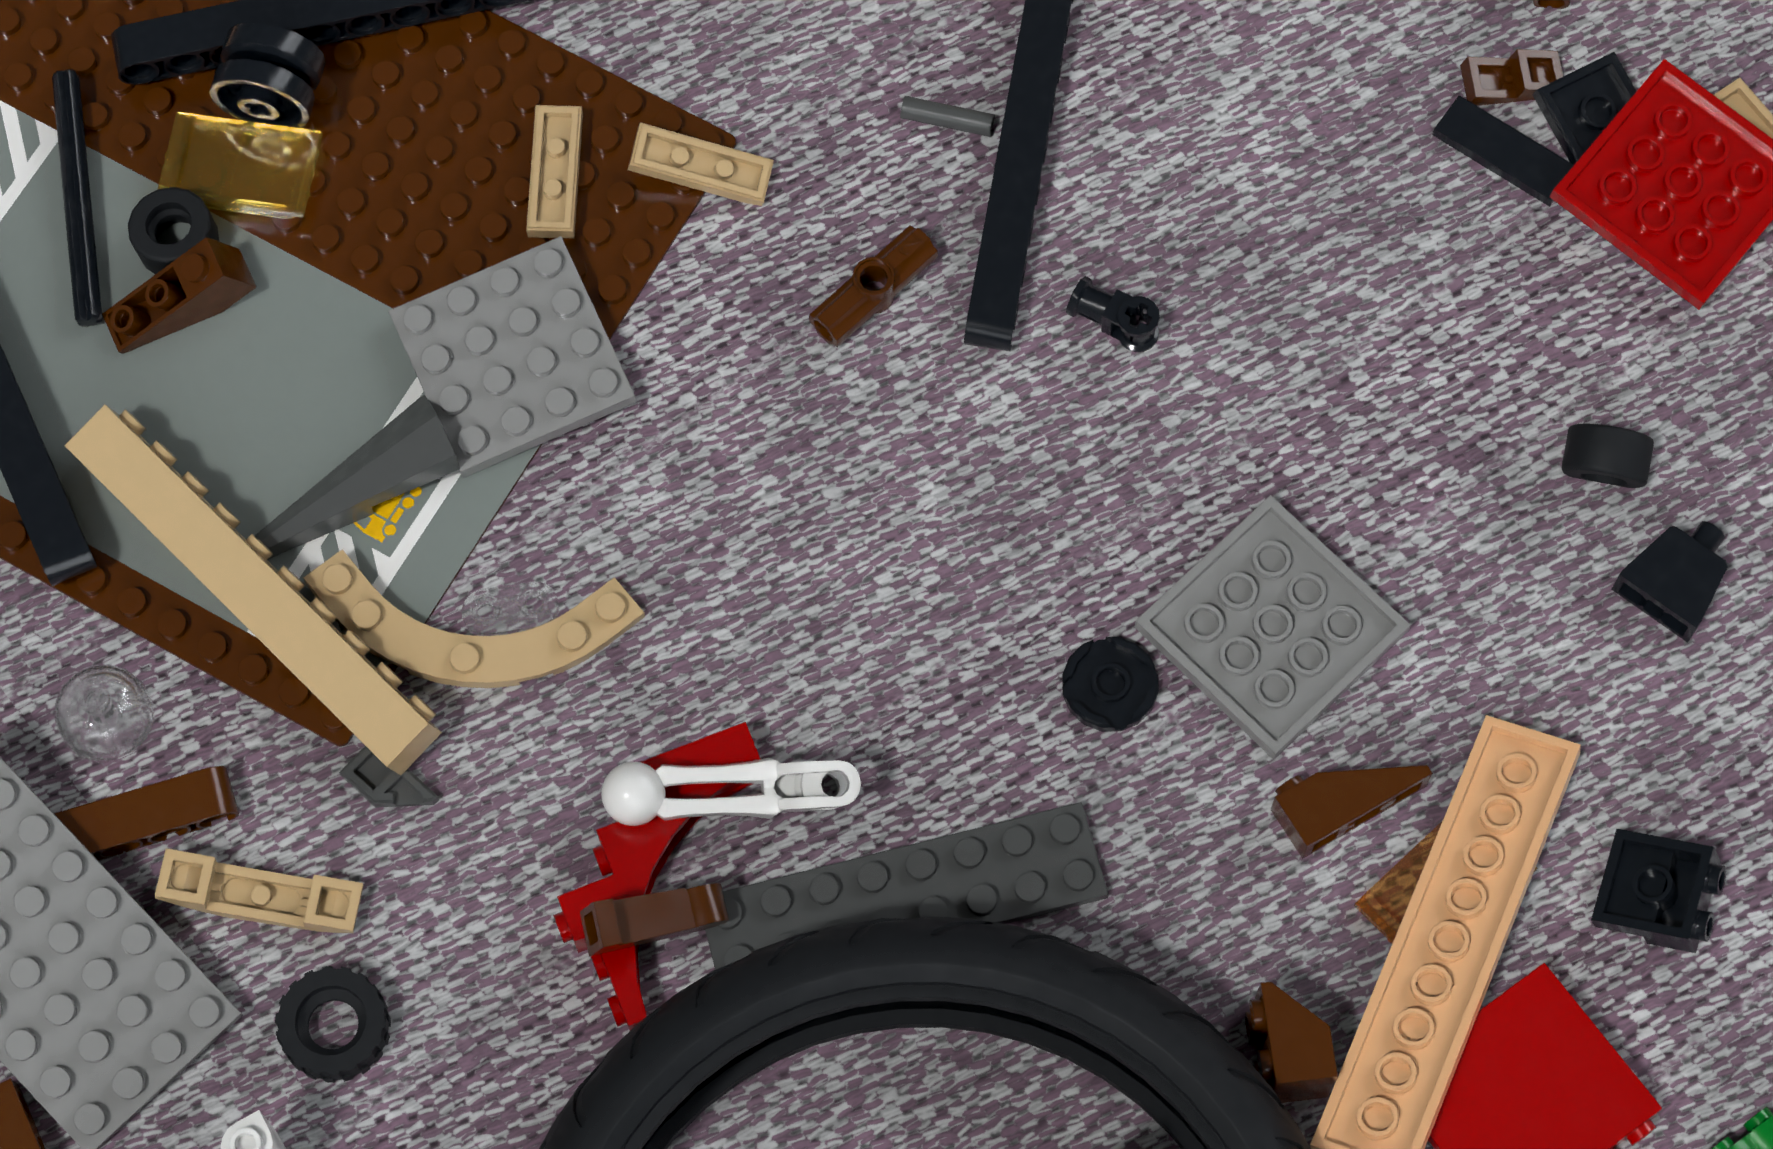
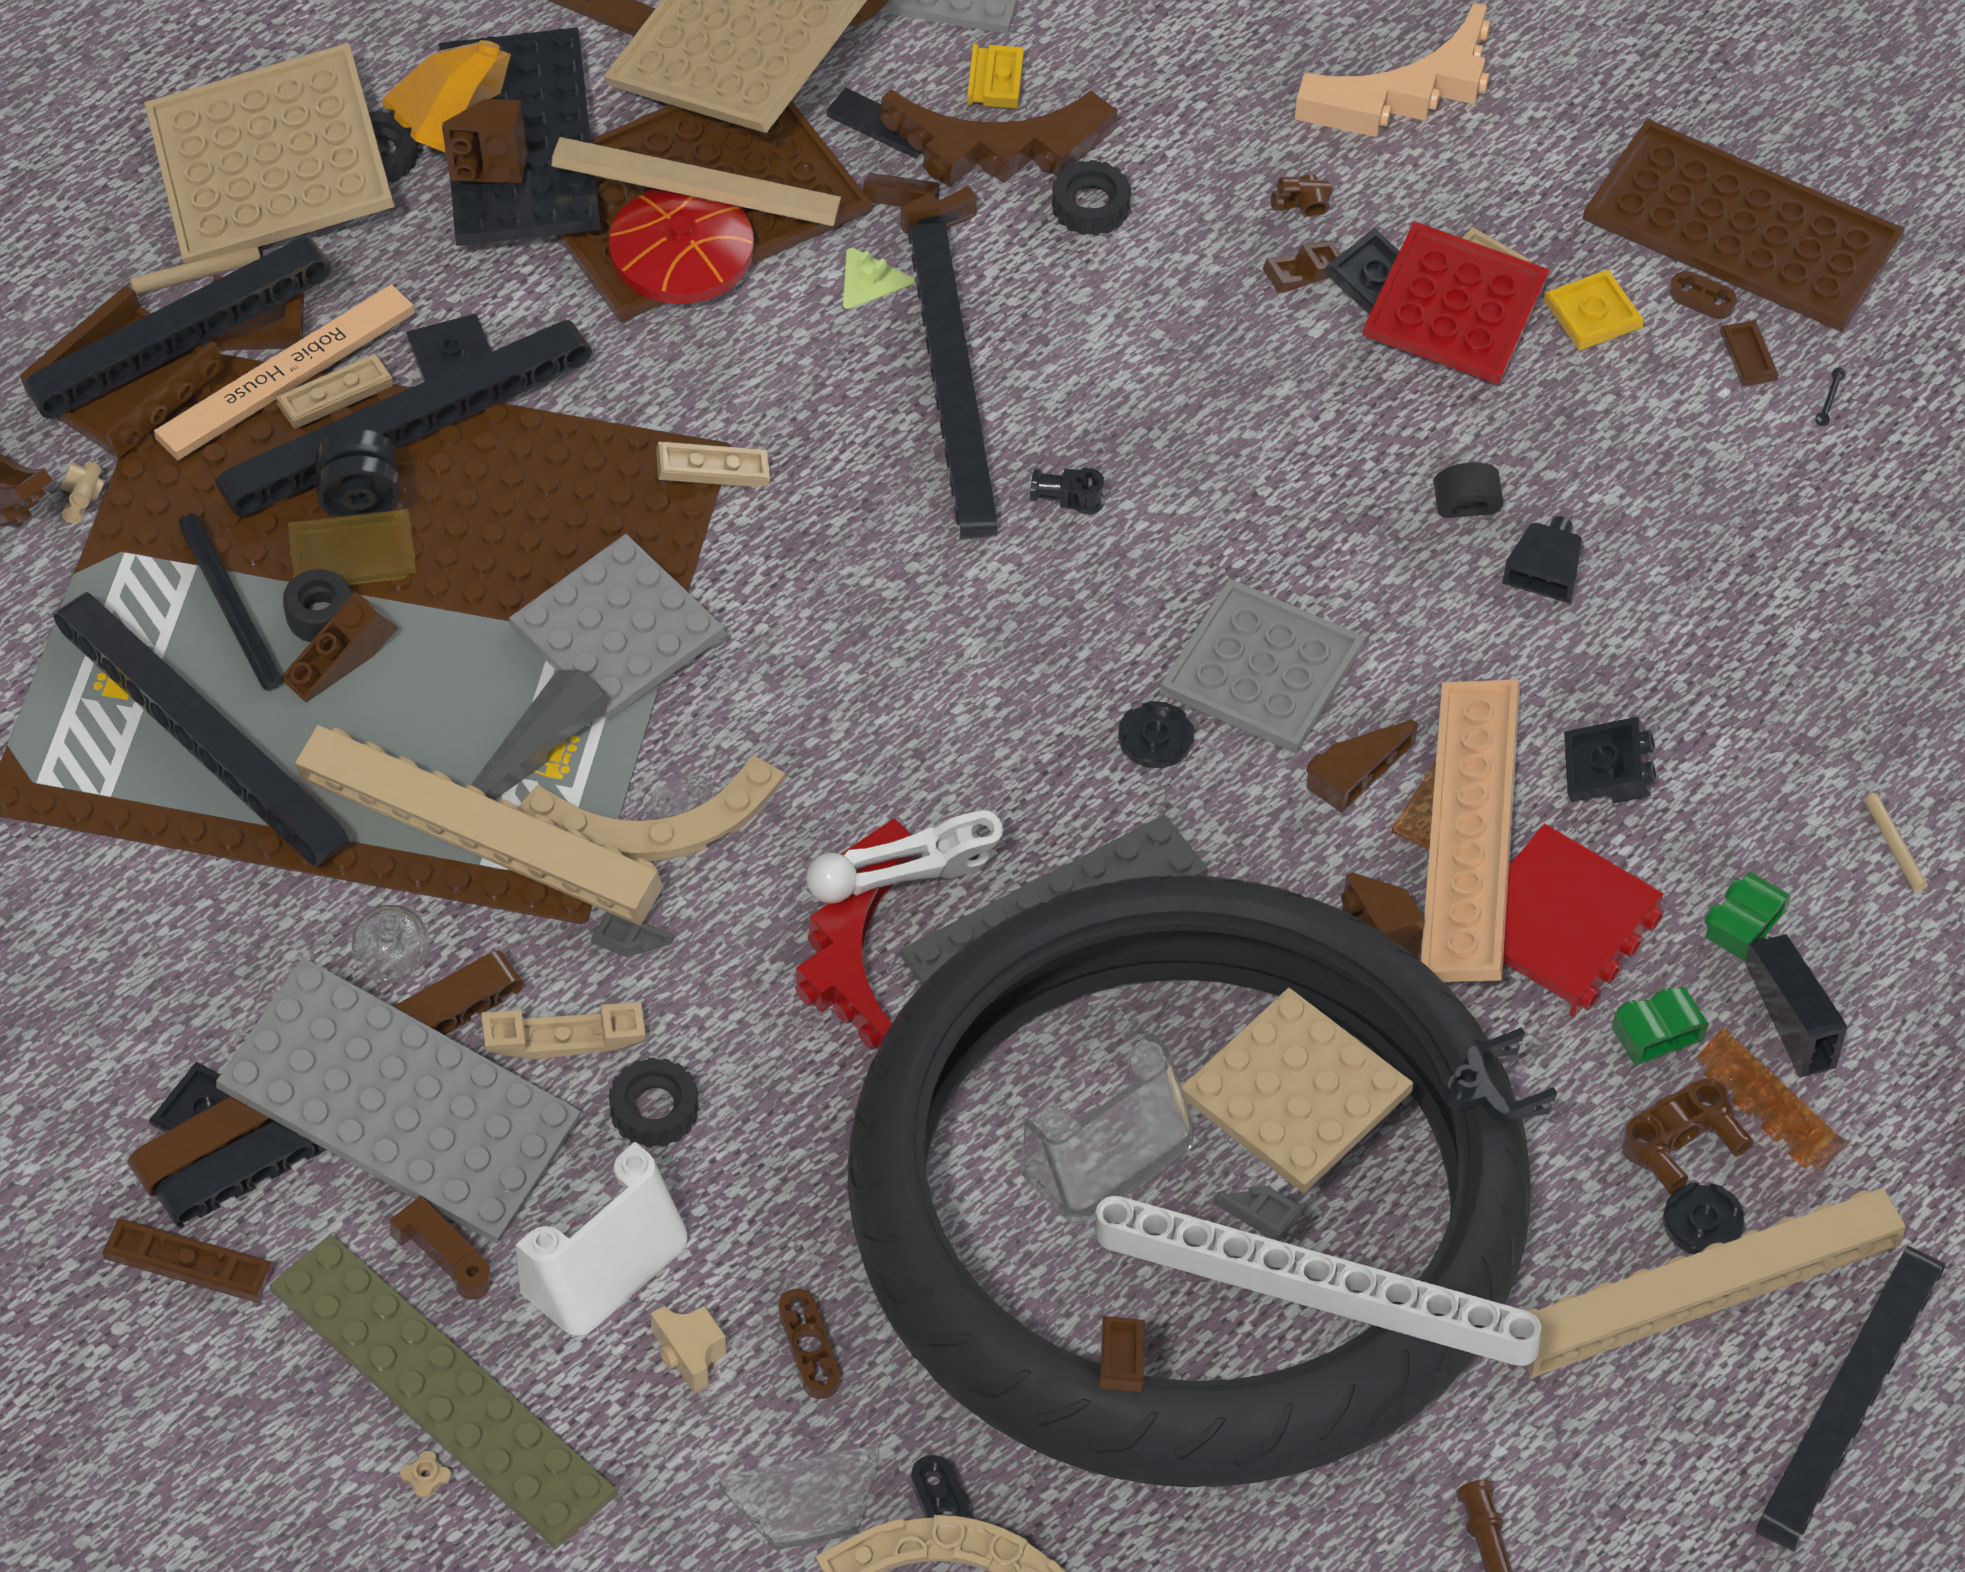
camera: 20 degrees left, 15 degrees down
(554, 171) = (600, 495): tan tile -> none
(651, 917) = (875, 957): reddish brown leg -> none
(893, 267) = (877, 514): reddish brown piece -> none
(947, 116) = (888, 391): dark grey piece -> none
(1502, 149) = (1314, 315): black tile -> none

